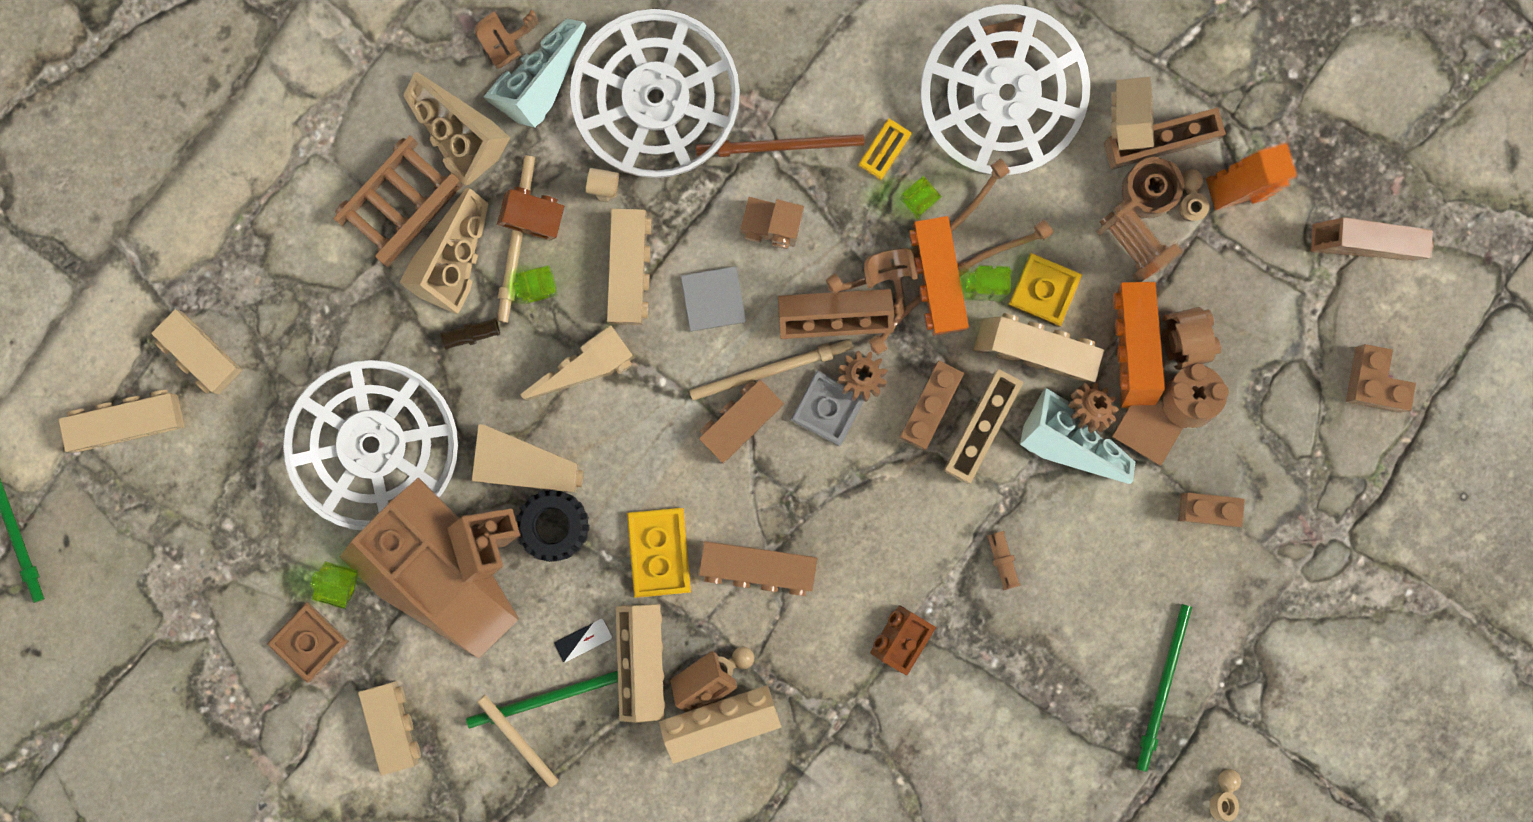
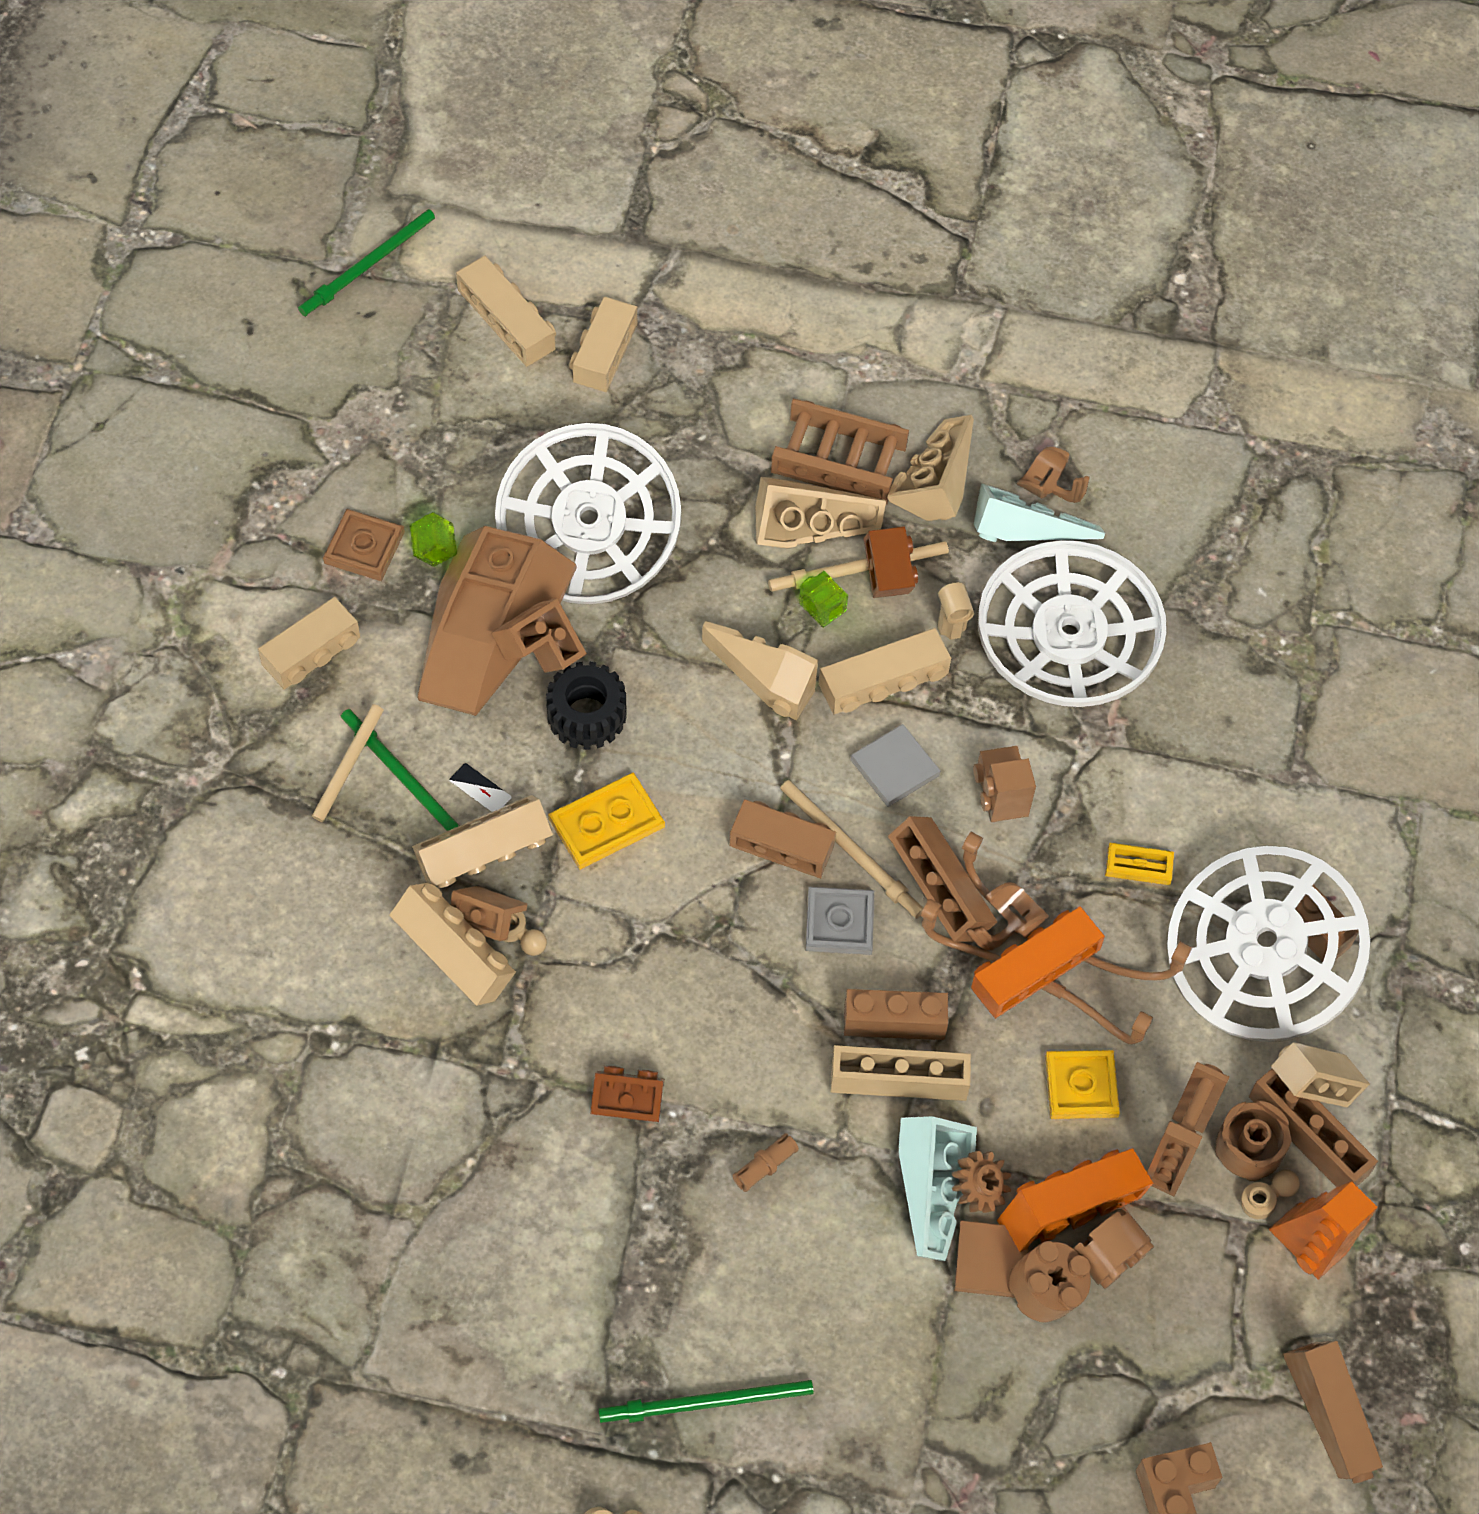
camera: 65 degrees right, 25 degrees down
(470, 333) = (743, 562): dark brown pin -> none
(517, 463) = (633, 650): tan slope -> none
(758, 566) = (638, 917): medium nougat brick -> none
(783, 144) = (1055, 715): dark orange bar -> none
(852, 371) = (891, 934): medium nougat gear -> none
(920, 197) = (1110, 911): clear neon green brick -> none
(989, 283) = (1057, 1012): clear neon green brick -> none
(1039, 348) = (1016, 1096): tan wedge -> none
(1211, 509) = (934, 1360): medium nougat brick -> none

